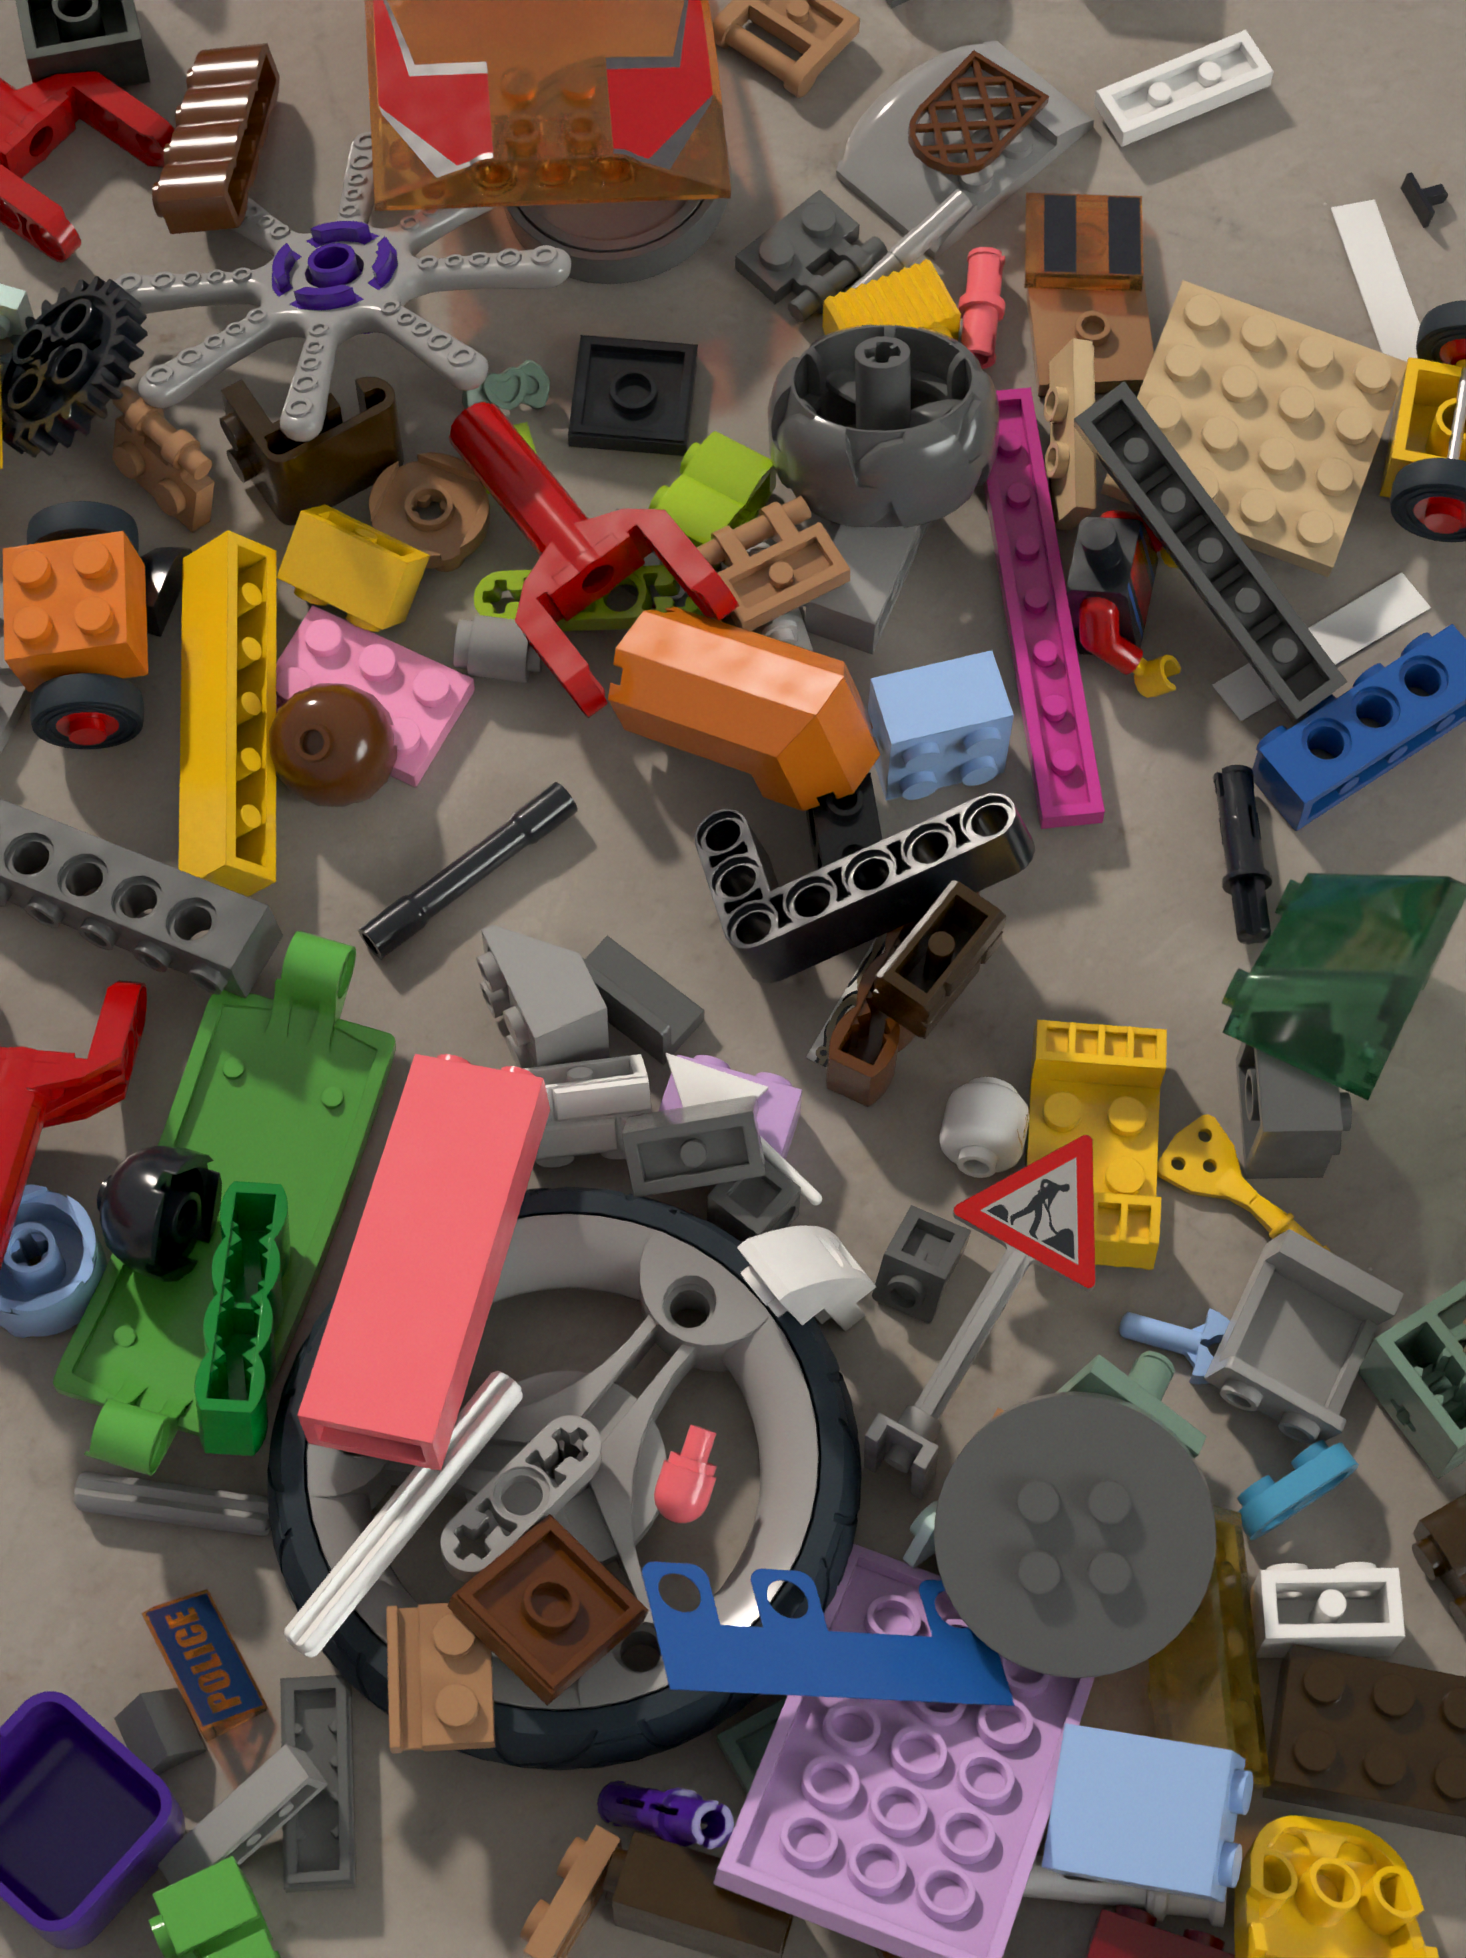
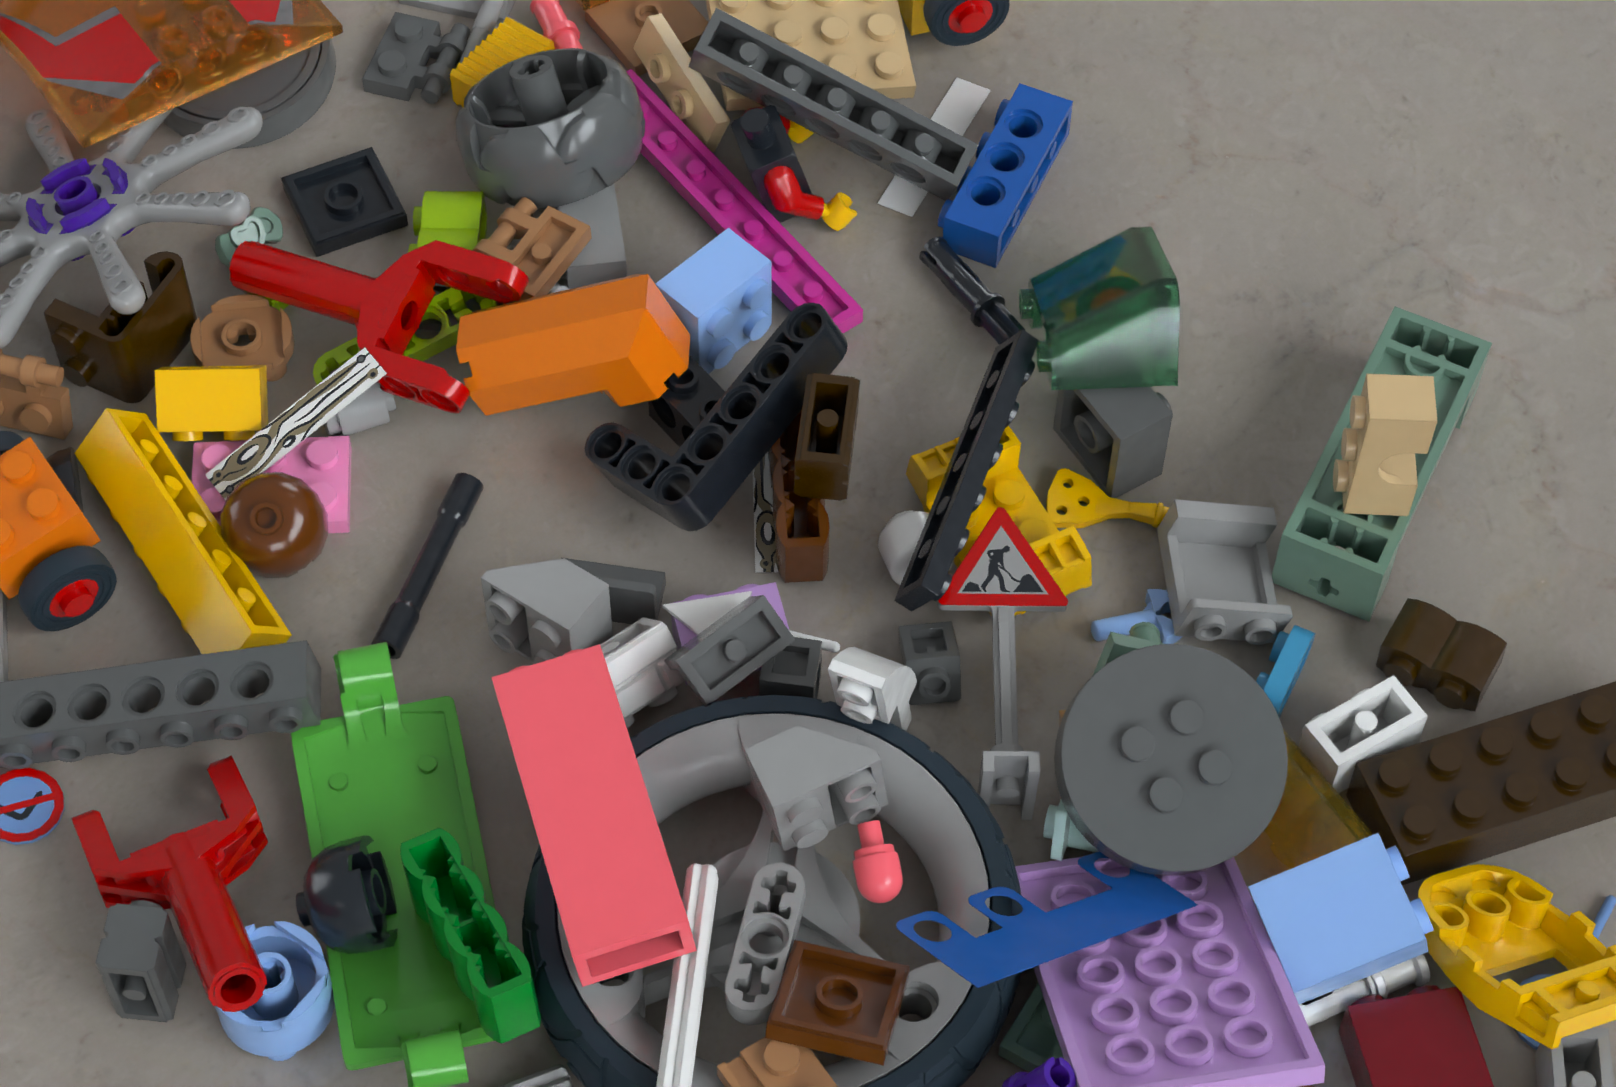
camera: 30 degrees left, 10 degrees down
(415, 643) = (297, 422): none -> sticker
(654, 1359) = (815, 784): none -> light grey slope
(1059, 1091) = (962, 484): none -> black plate

